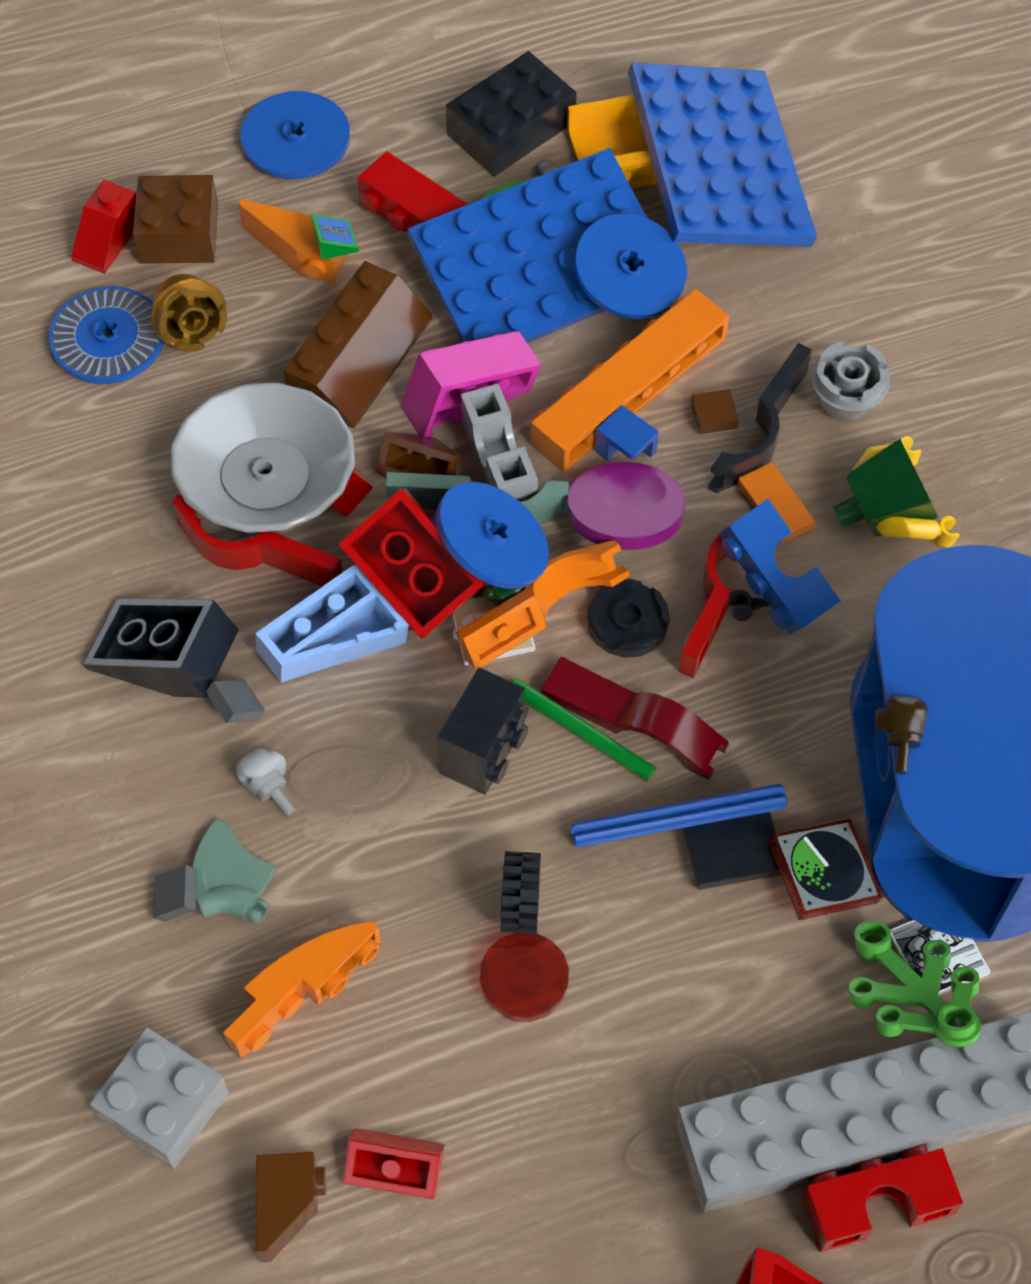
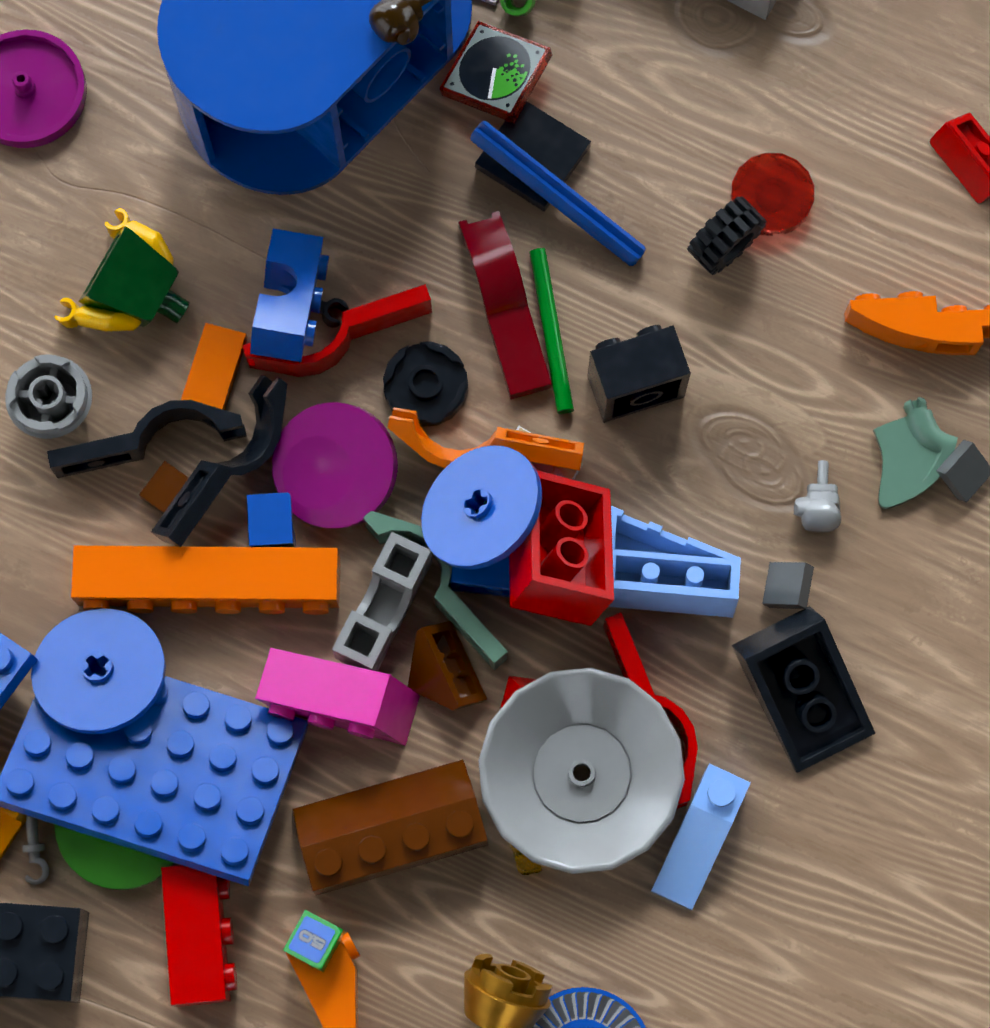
camera: 135 degrees left, 15 degrees up
(150, 508) = (700, 836): none -> light blue slope
(693, 438) = (210, 477): none -> black piece

